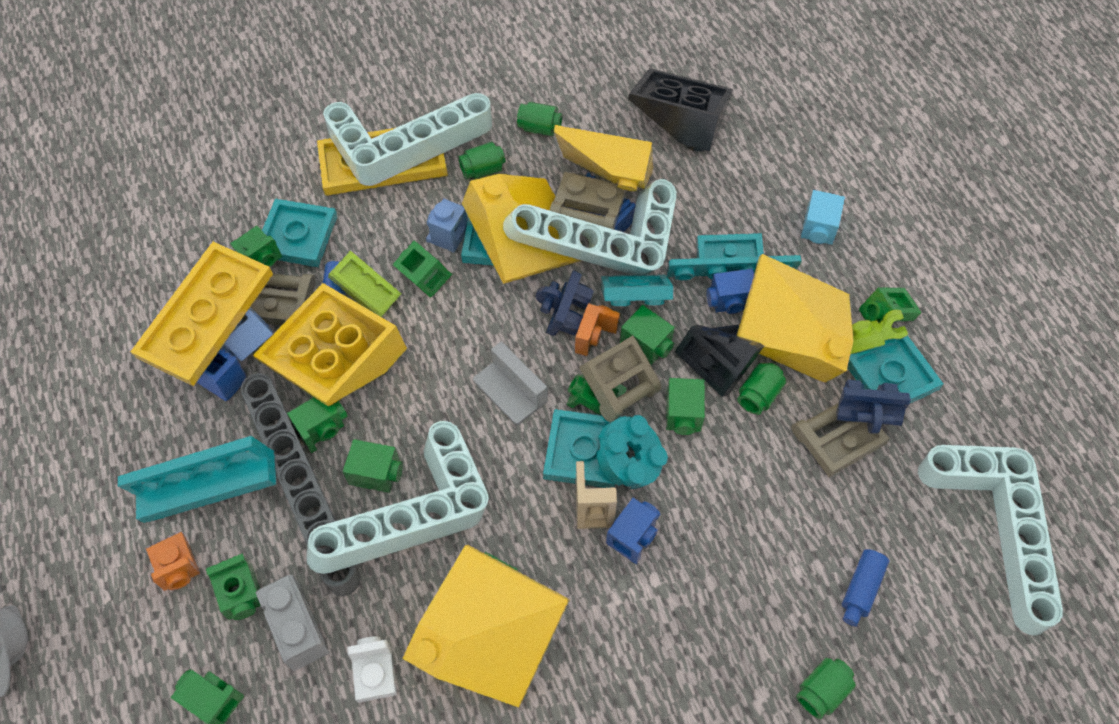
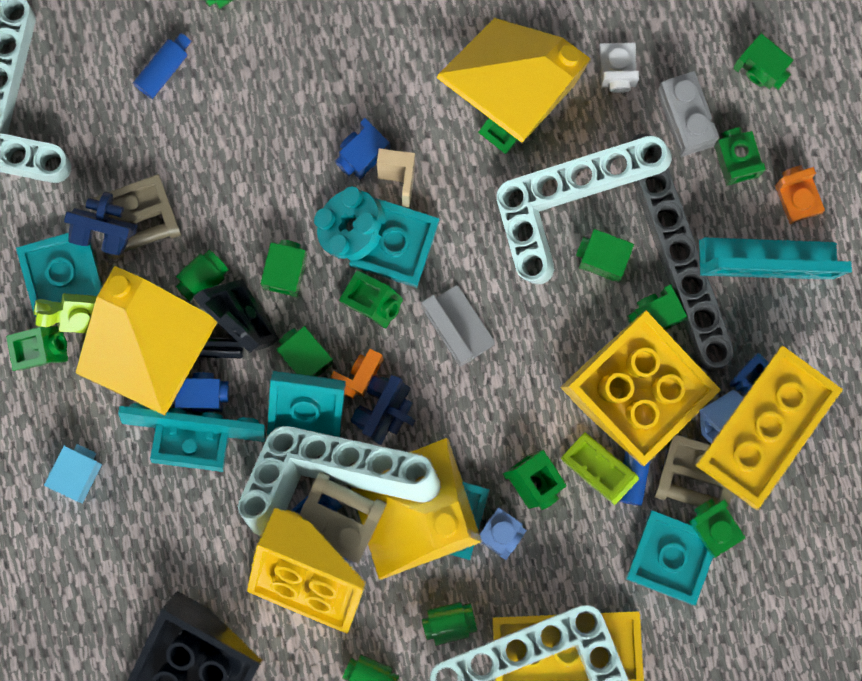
camera: 175 degrees left, 20 degrees up
(614, 368) = (350, 308): dark tan plate -> none

